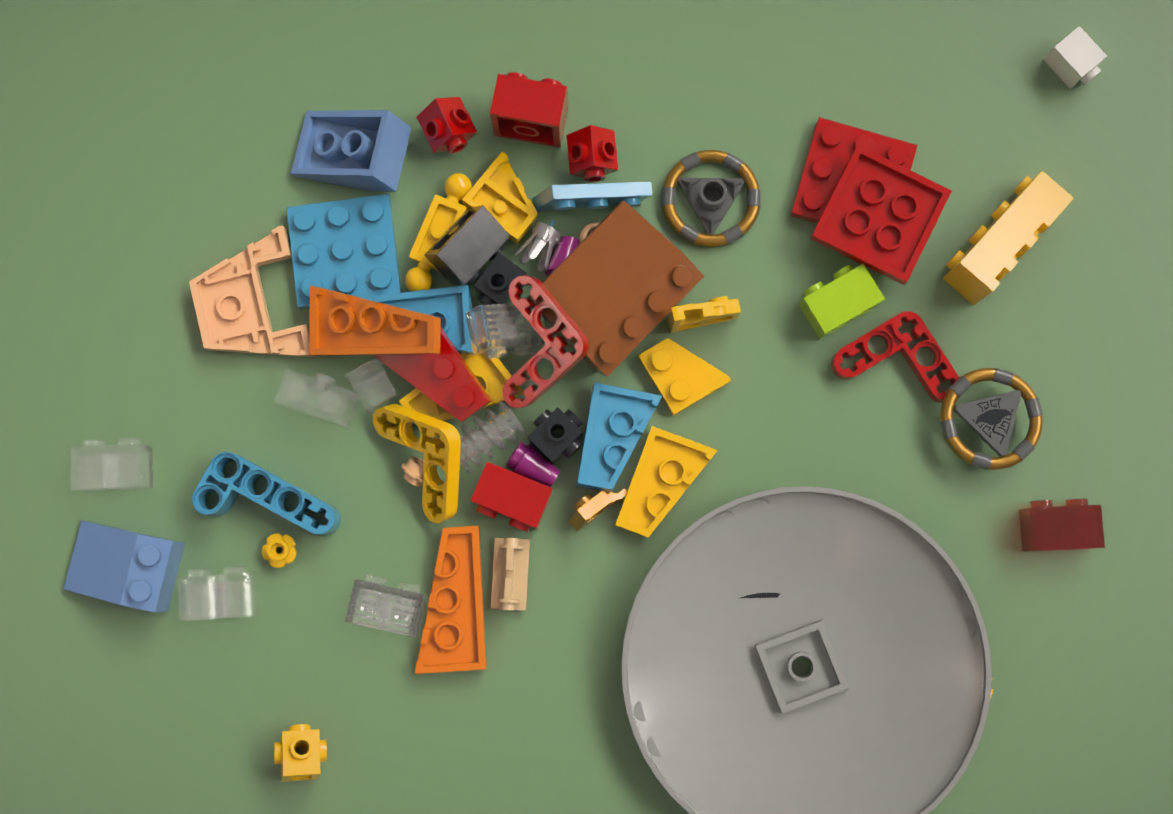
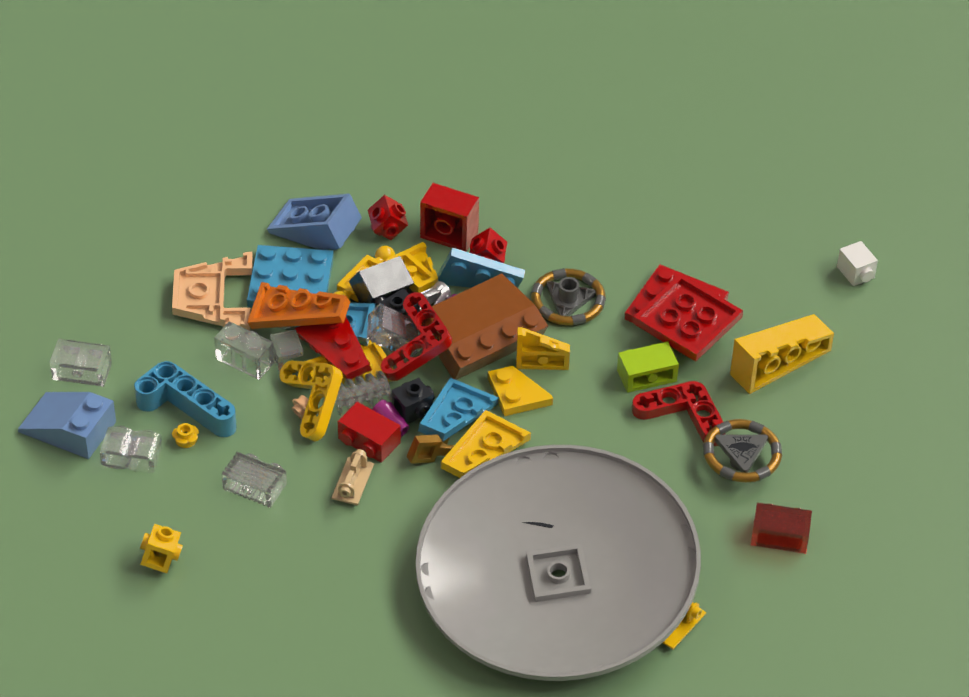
camera: 10 degrees right, 35 degrees down
(455, 612) = (305, 491): orange wing -> none

